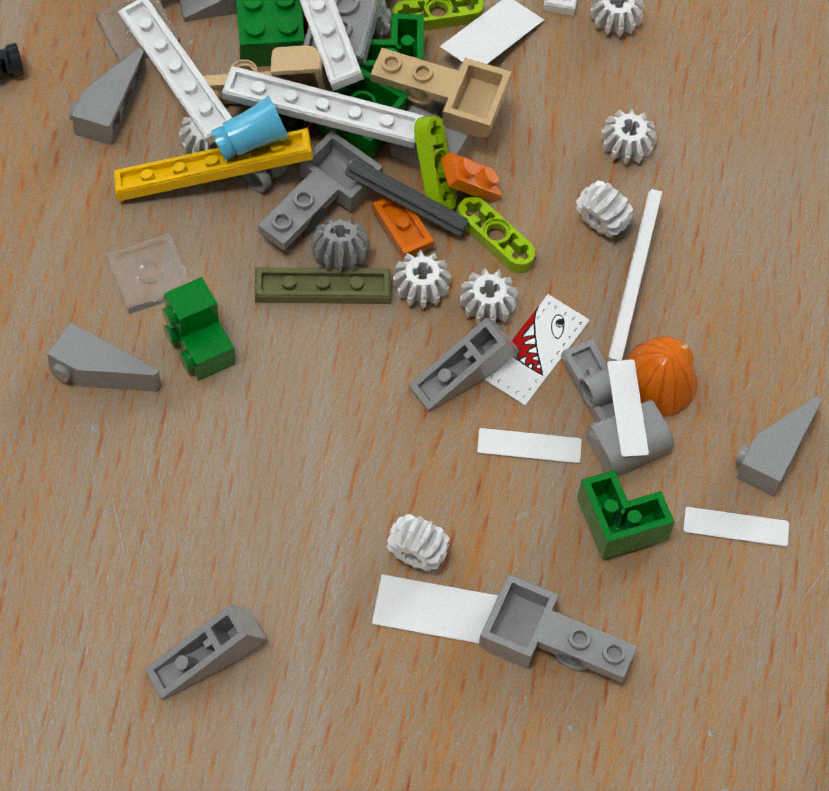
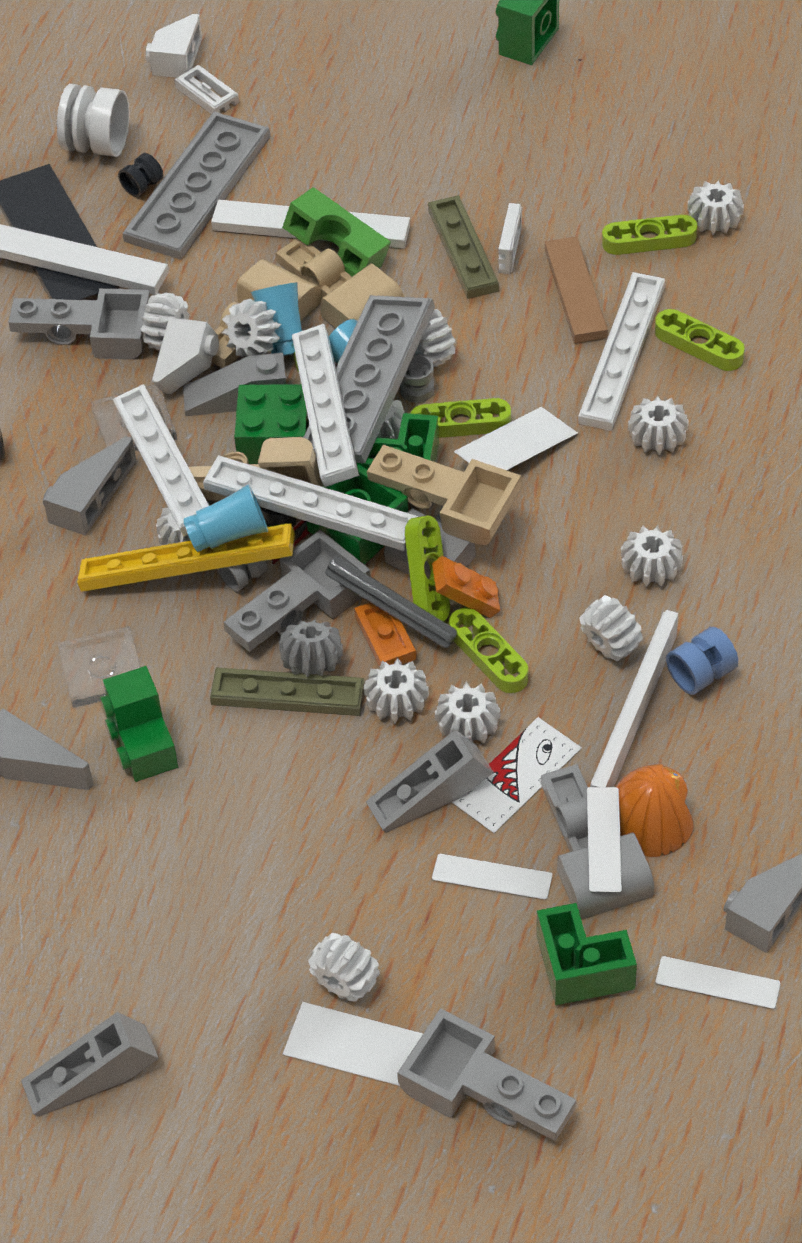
camera: 15 degrees right, 10 degrees down
(689, 231) = (705, 658): none -> medium blue wheel

